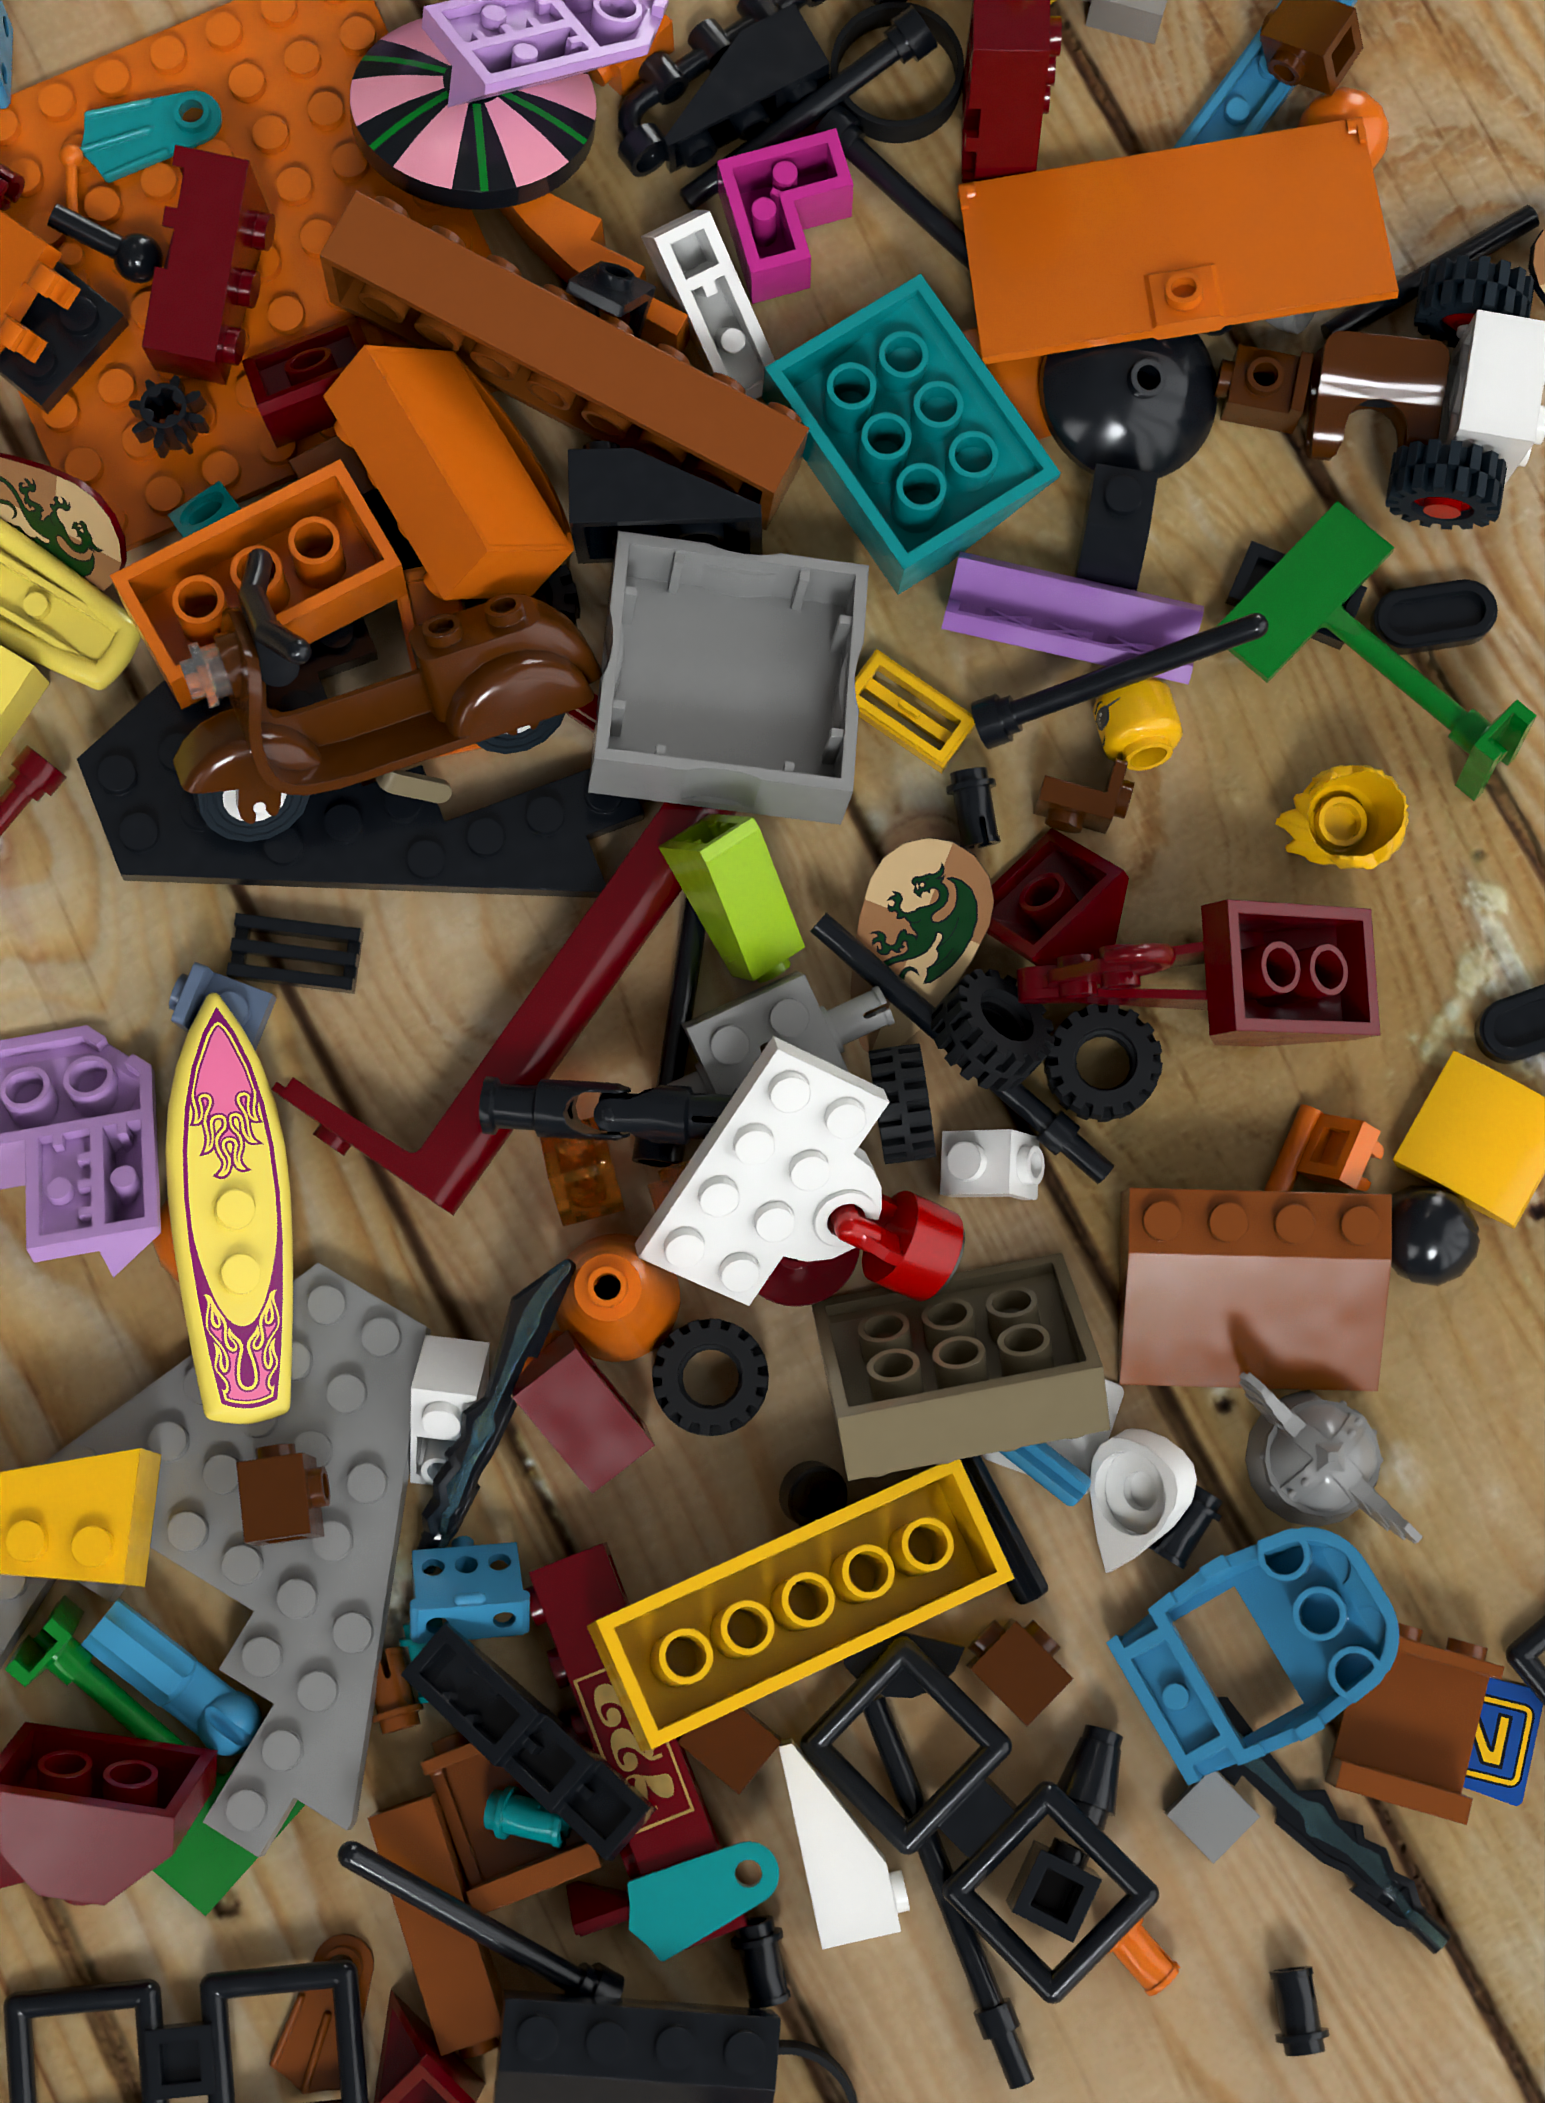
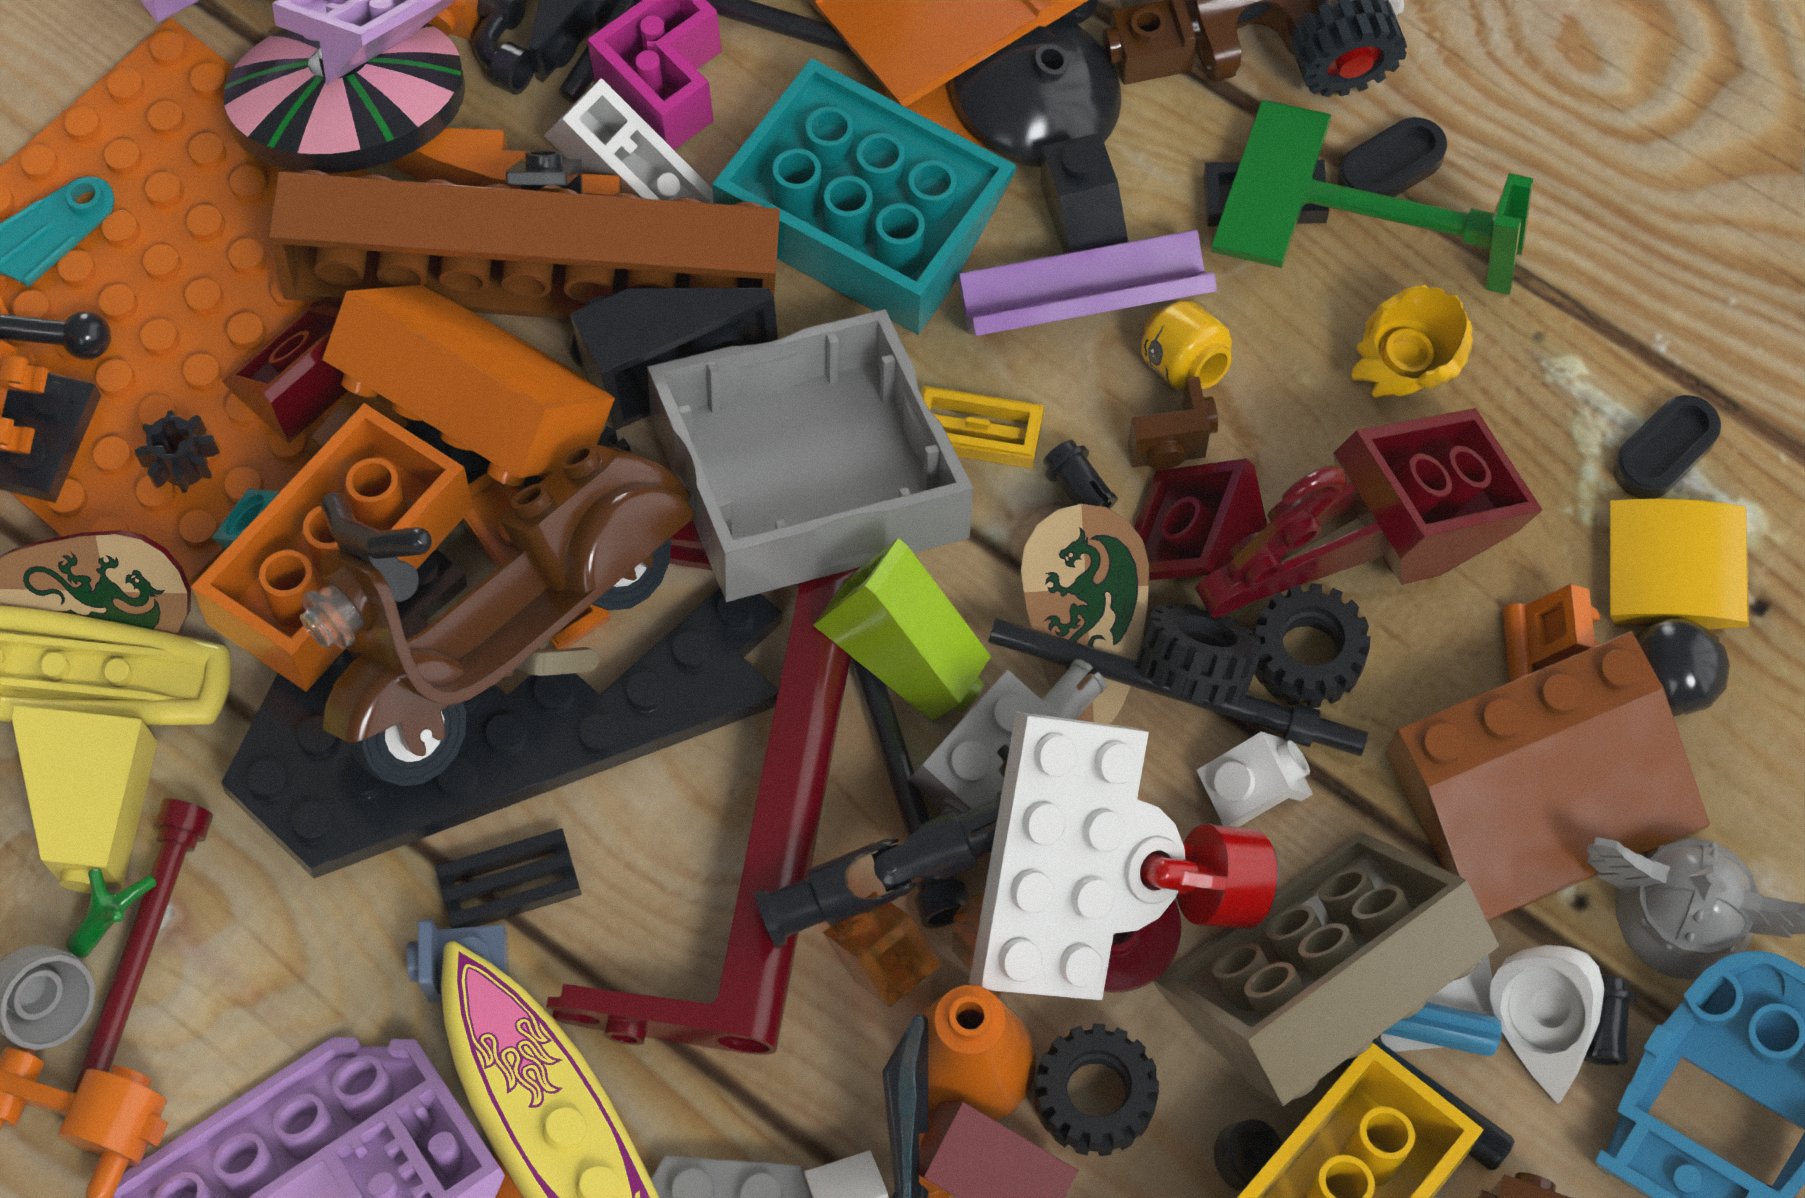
camera: 25 degrees left, 15 degrees down
(209, 267) = (159, 307): dark red wedge -> none
(907, 1119) = (1169, 767): black tyre -> none
(1002, 717) = (1067, 391): black piece -> none

